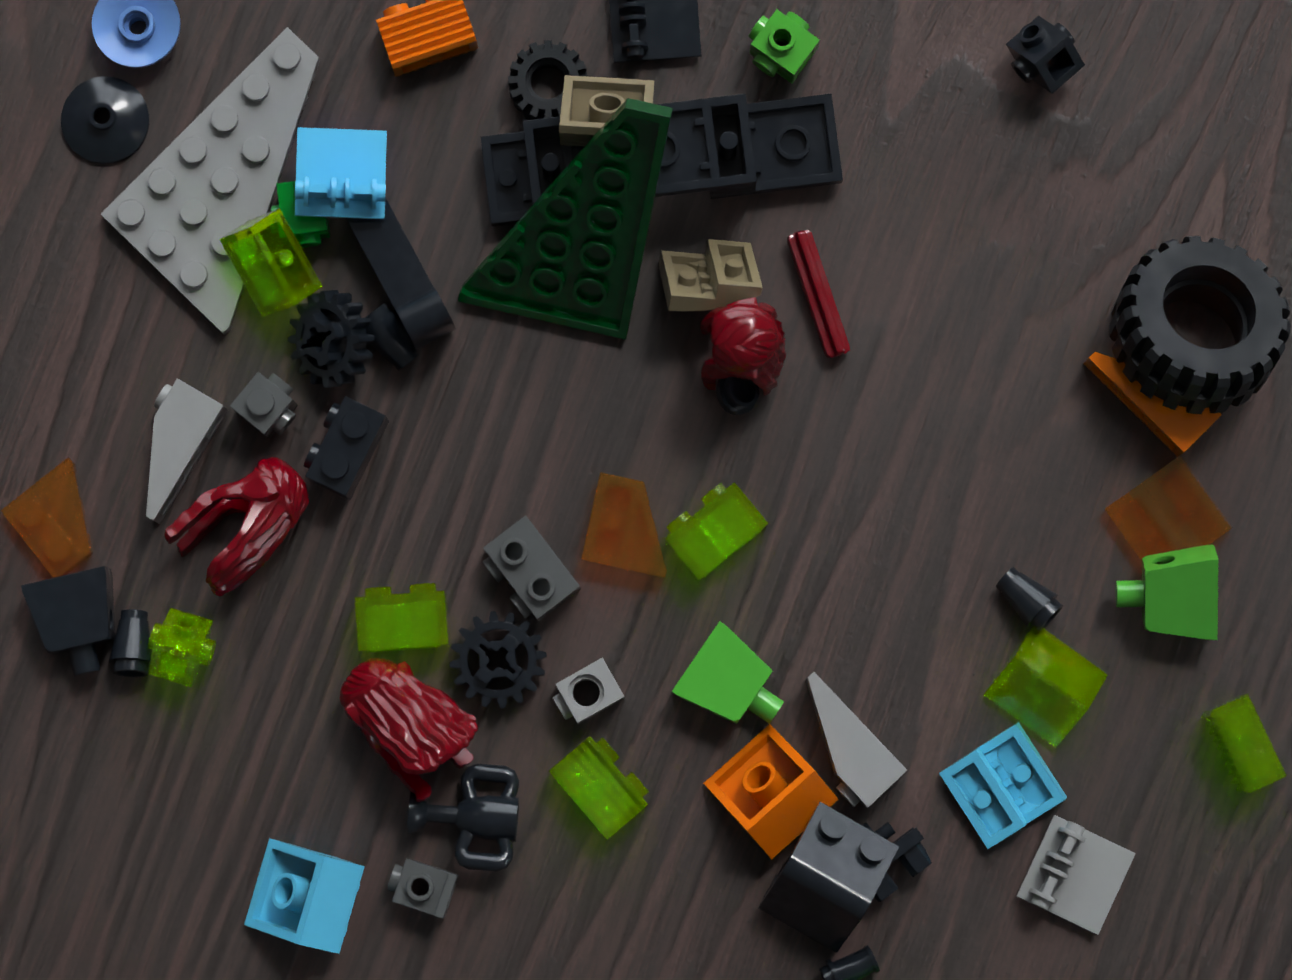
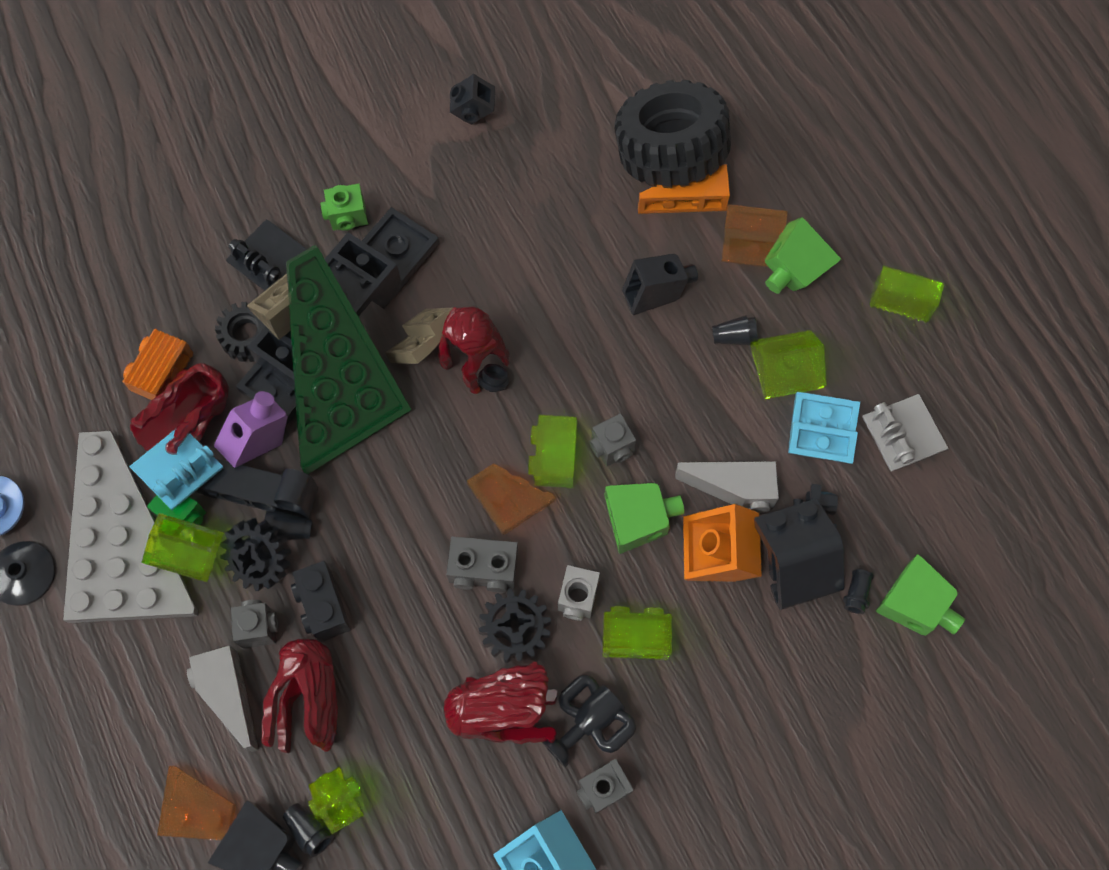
camera: 45 degrees left, 15 degrees down
(402, 620) = (443, 658): clear neon green brick -> none
(413, 109) = (184, 406): none -> dark red hair
(459, 210) = (252, 429): none -> medium lavender torso
(779, 582) = (613, 440): none -> dark grey brick
(818, 294) = (482, 299): dark red axle -> none
(992, 460) = (656, 282): none -> black torso

